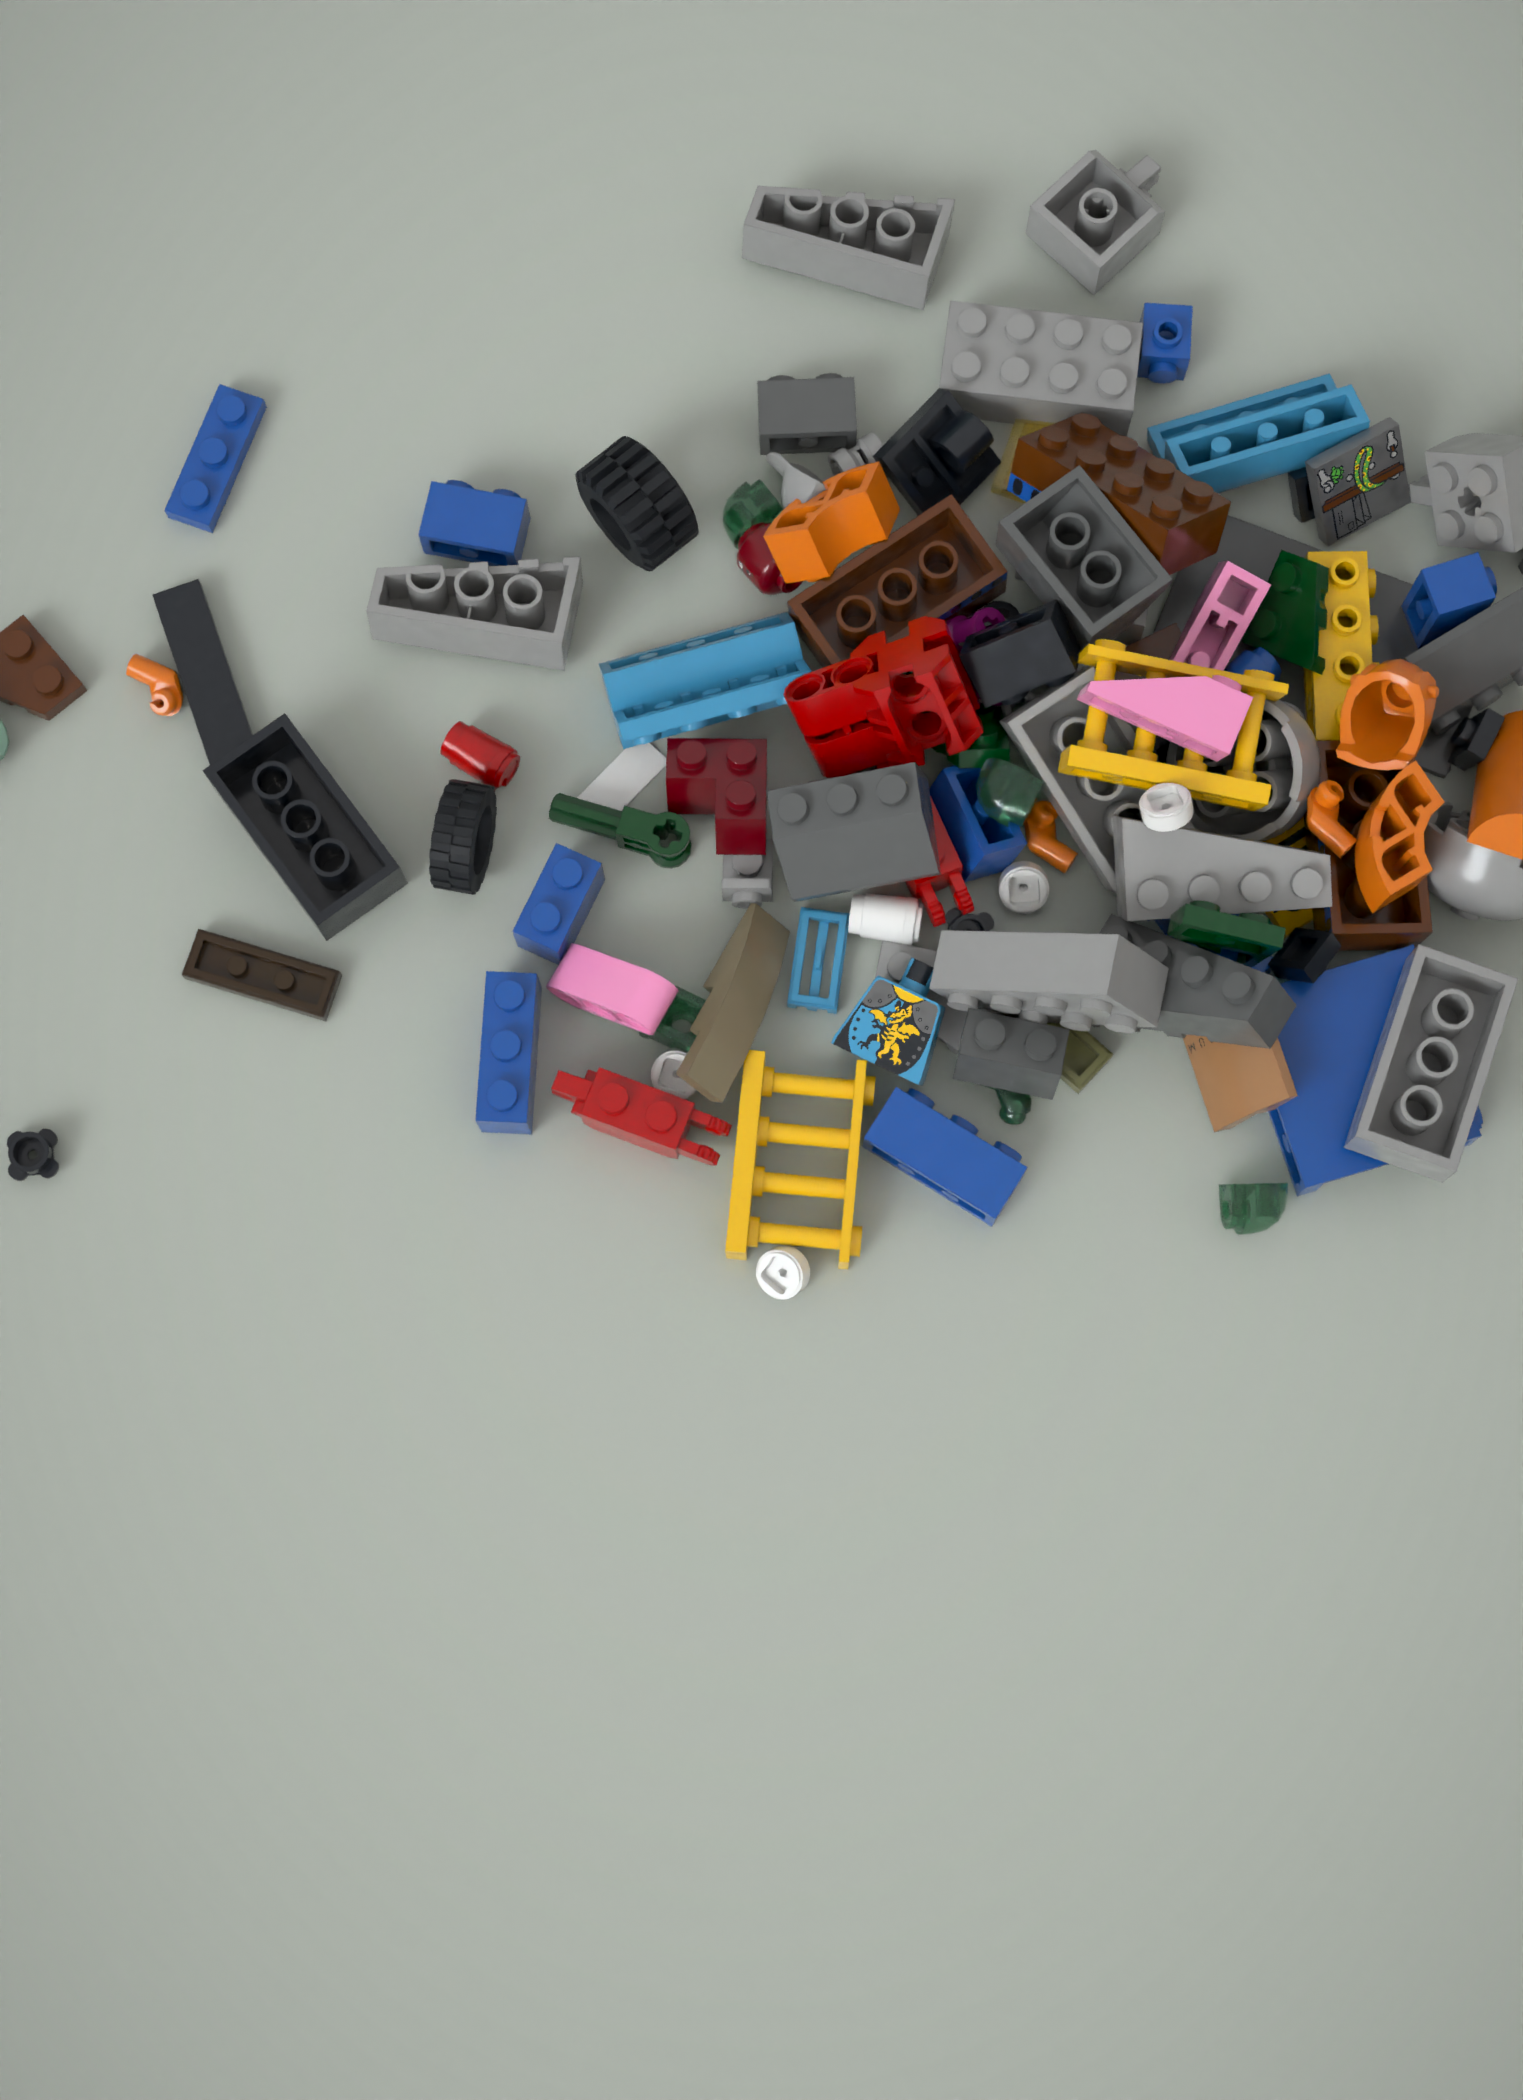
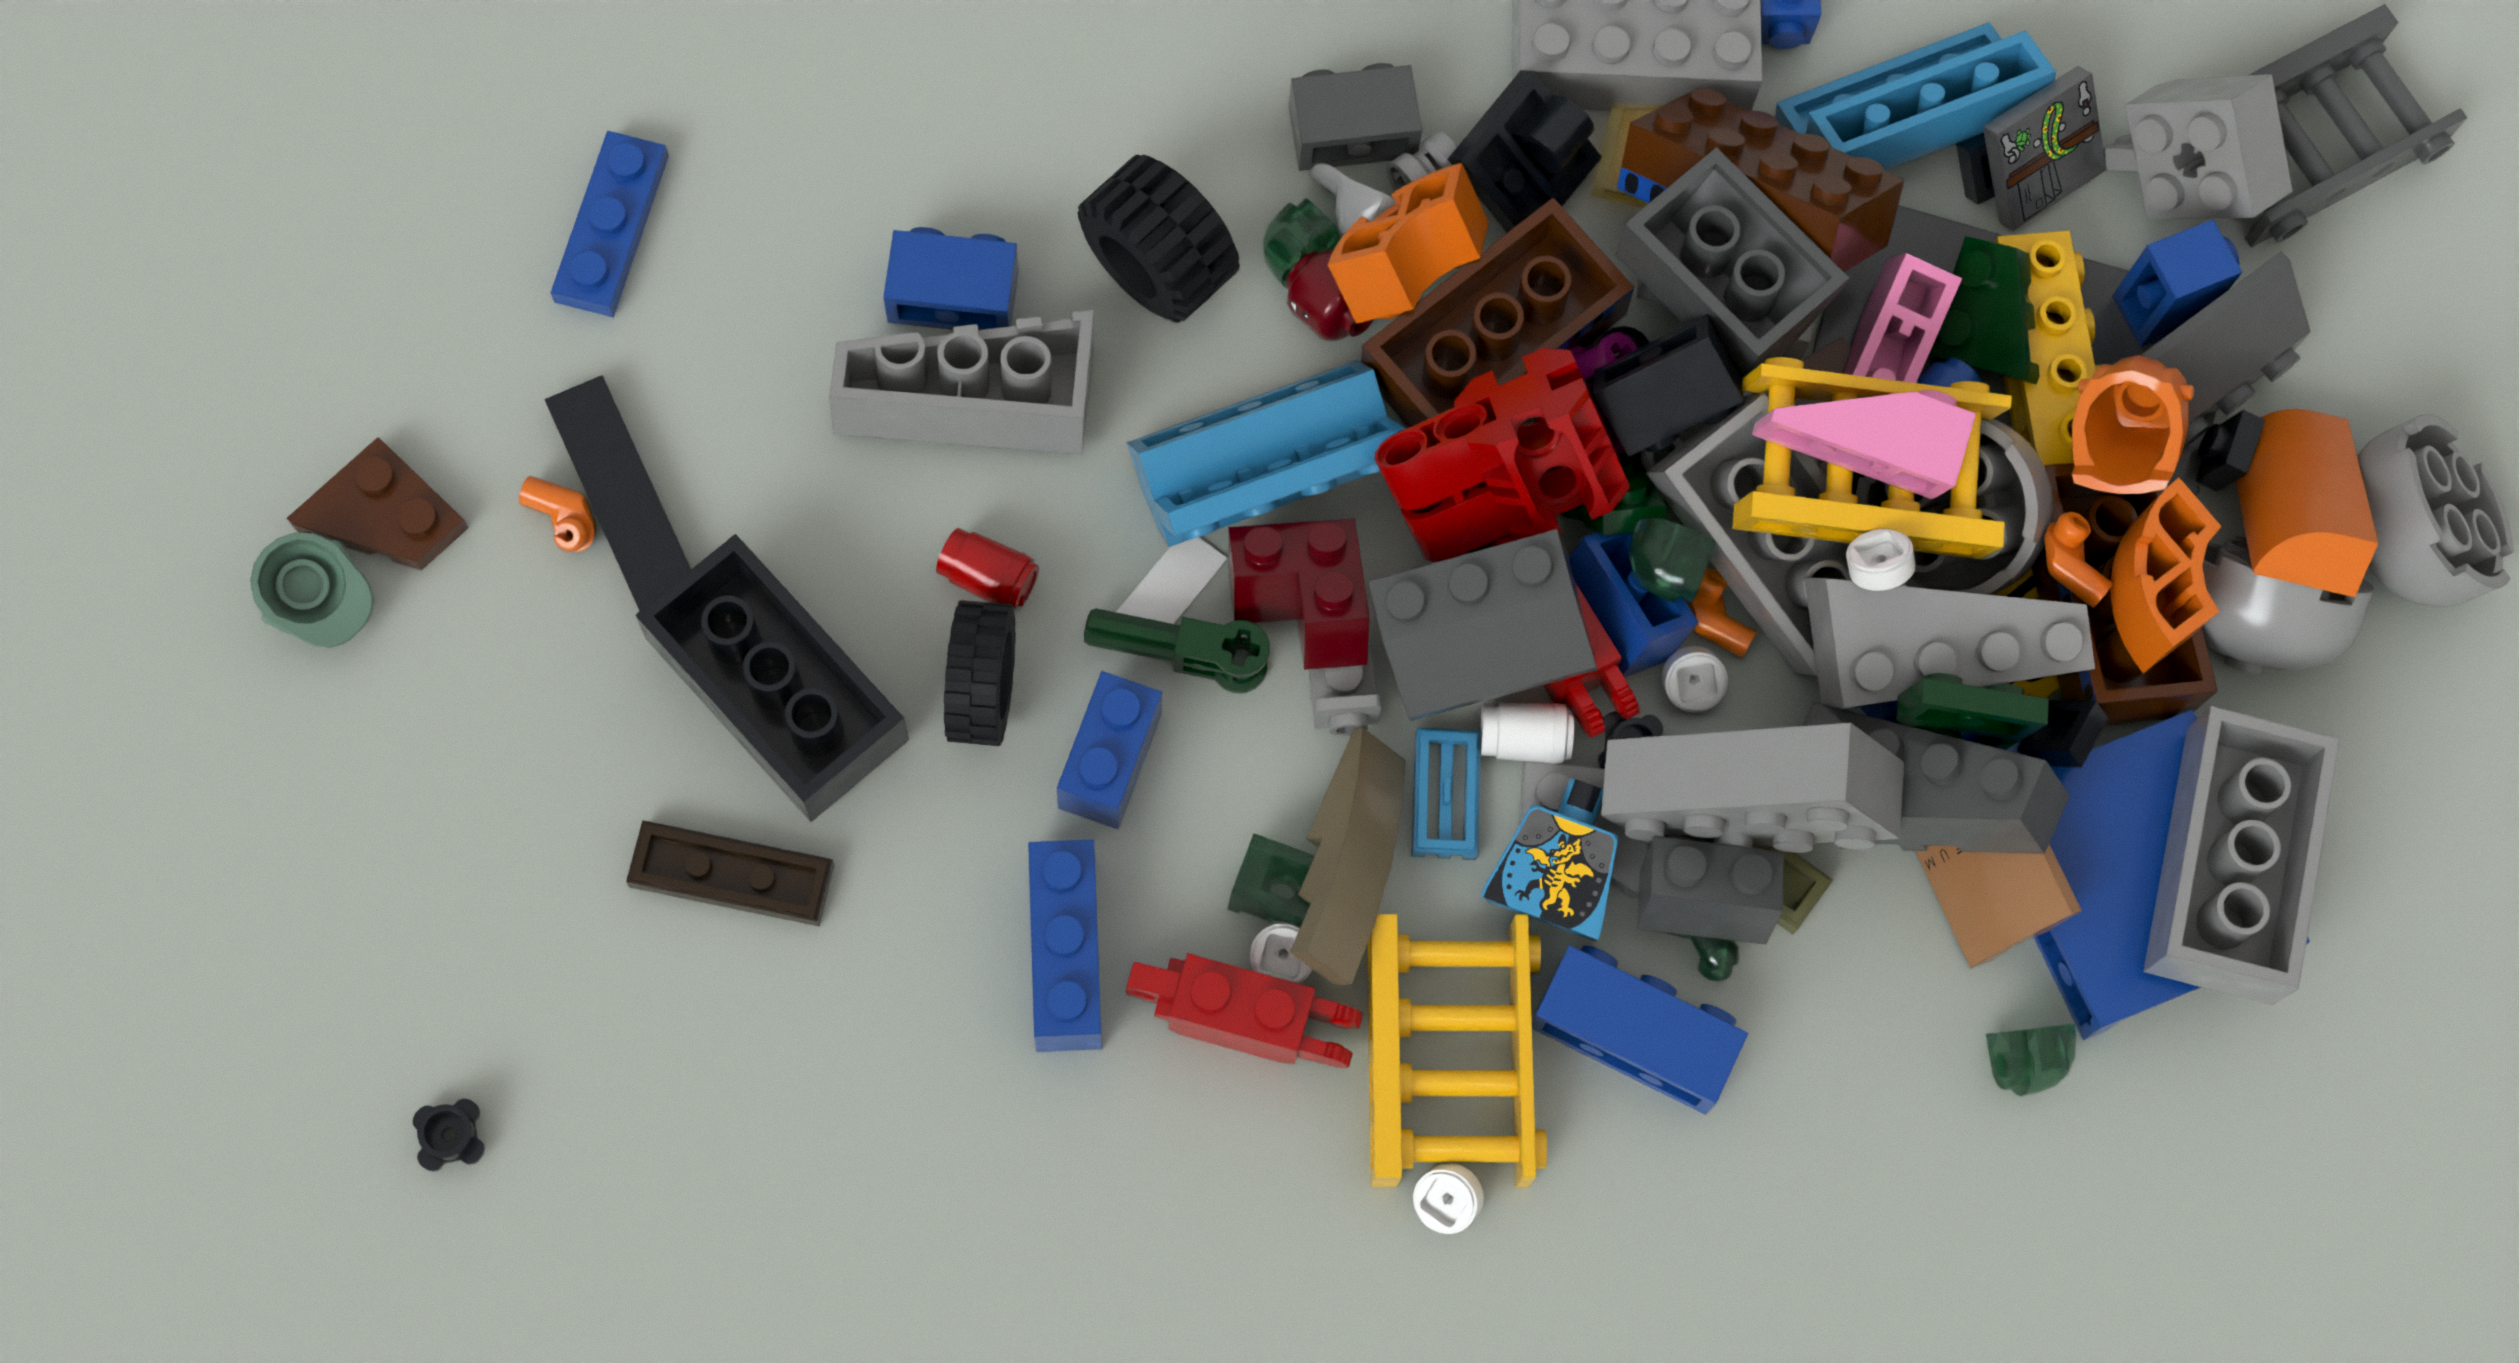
camera: 15 degrees left, 5 degrees down
(612, 988) = (1192, 851): bright pink beam -> none

